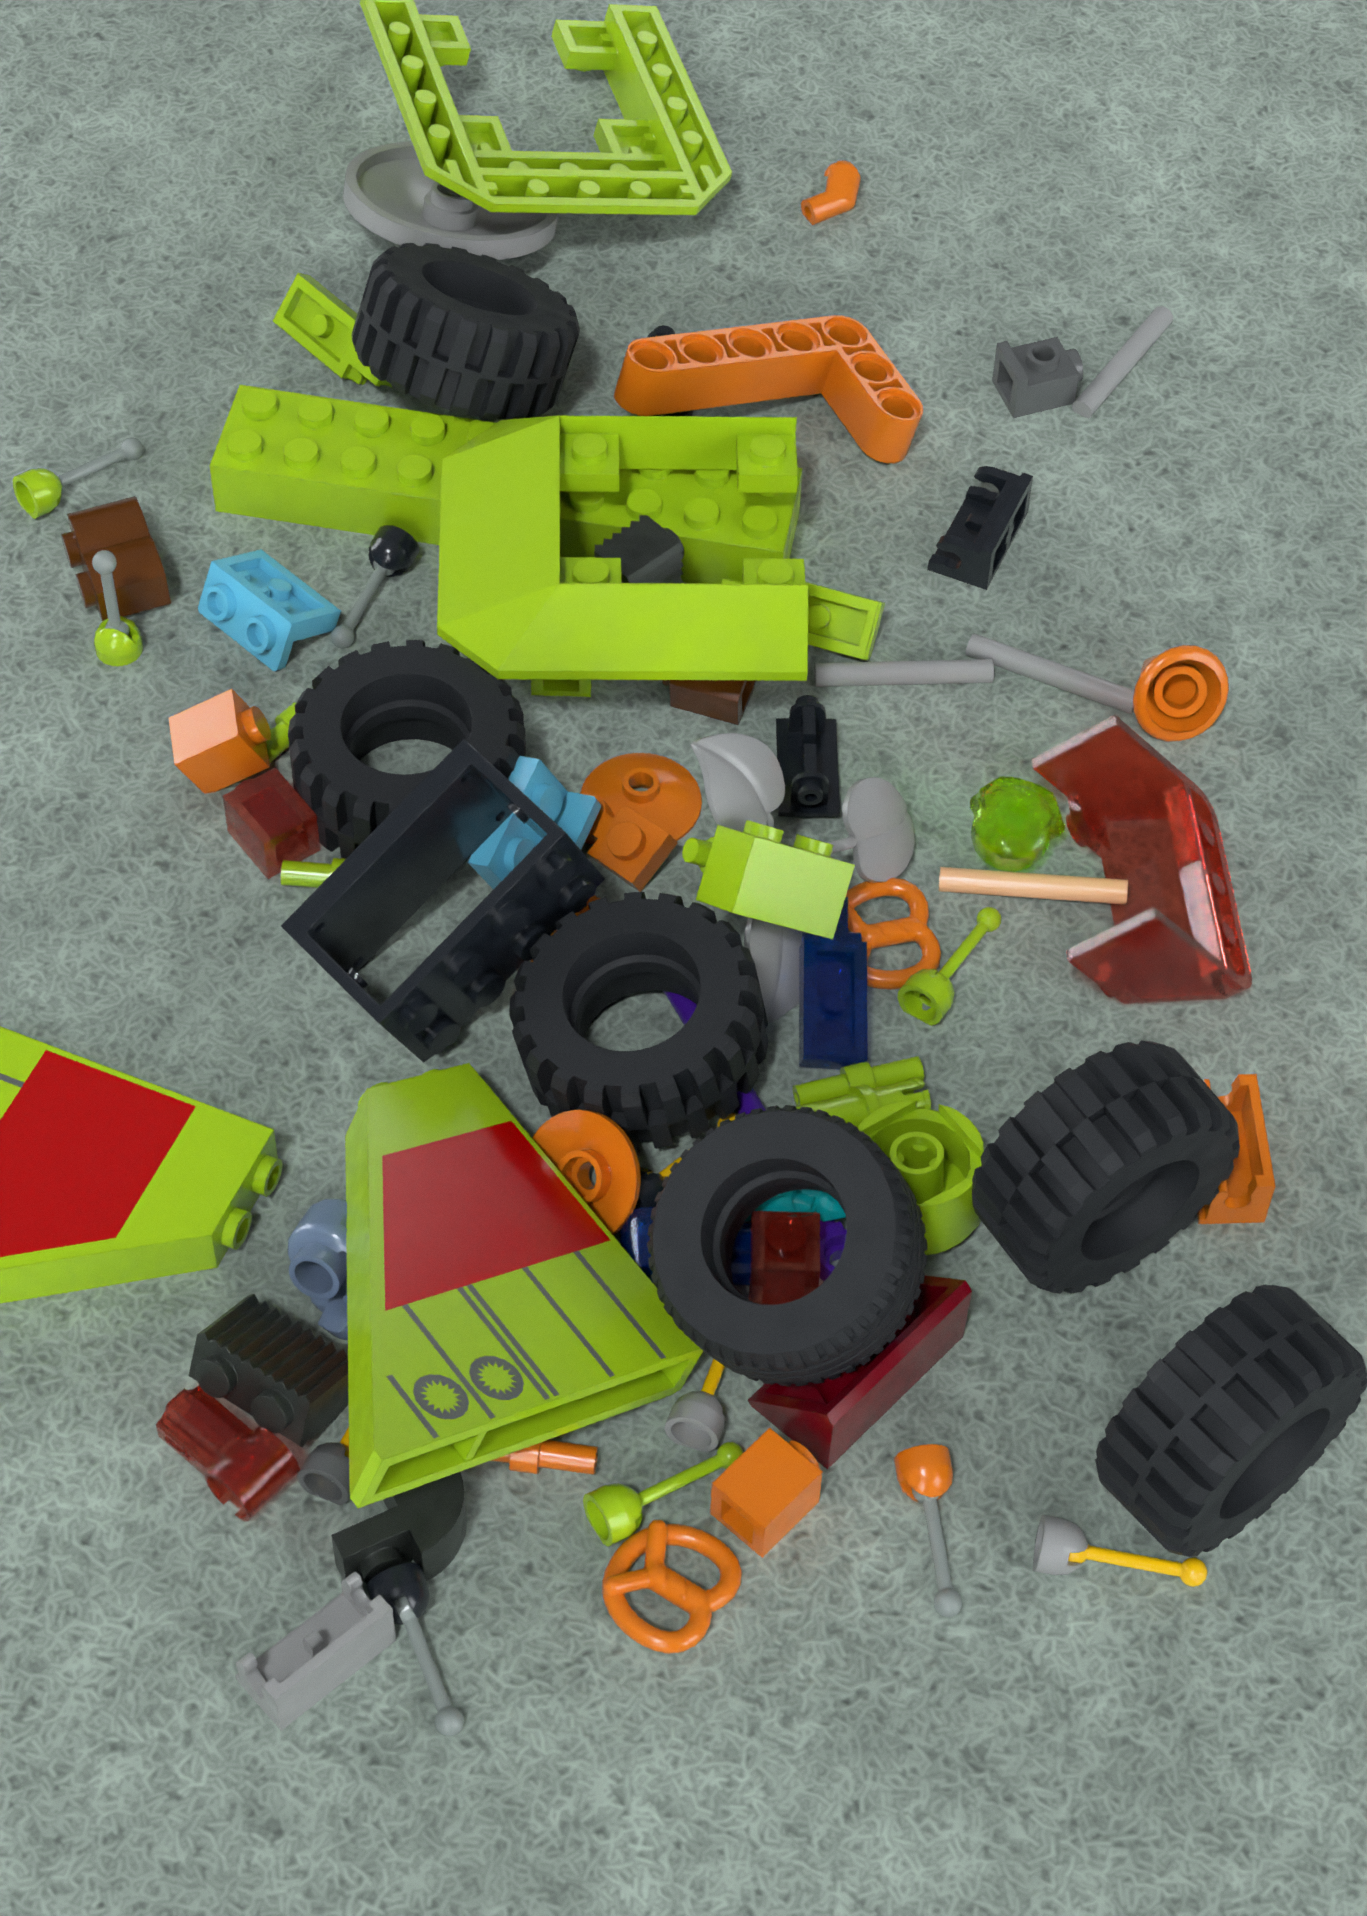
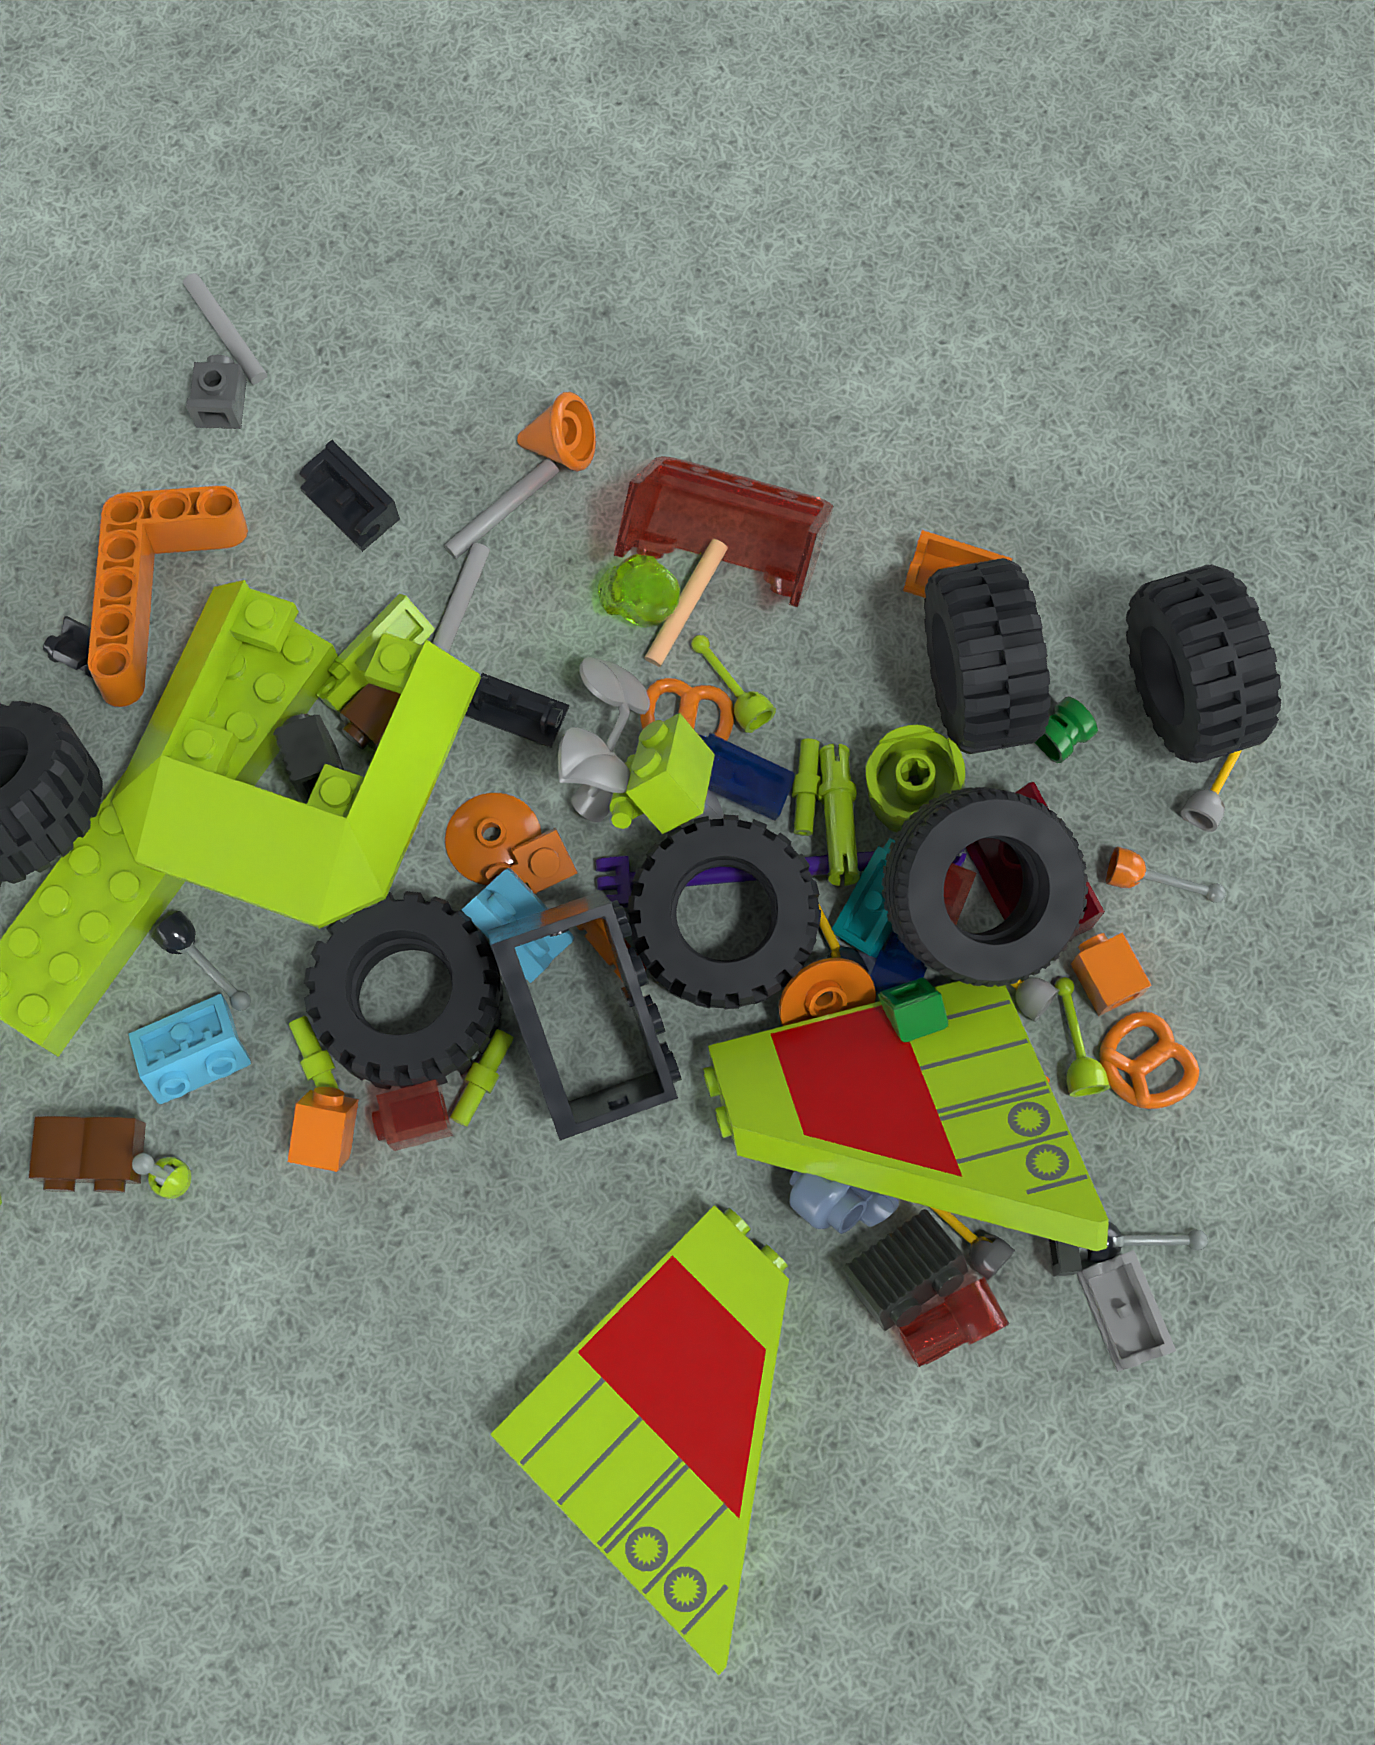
camera: 65 degrees left, 20 degrees up
(602, 1251) = (914, 1009): none -> green slope
(1079, 1337) = (1066, 727): none -> green wheel

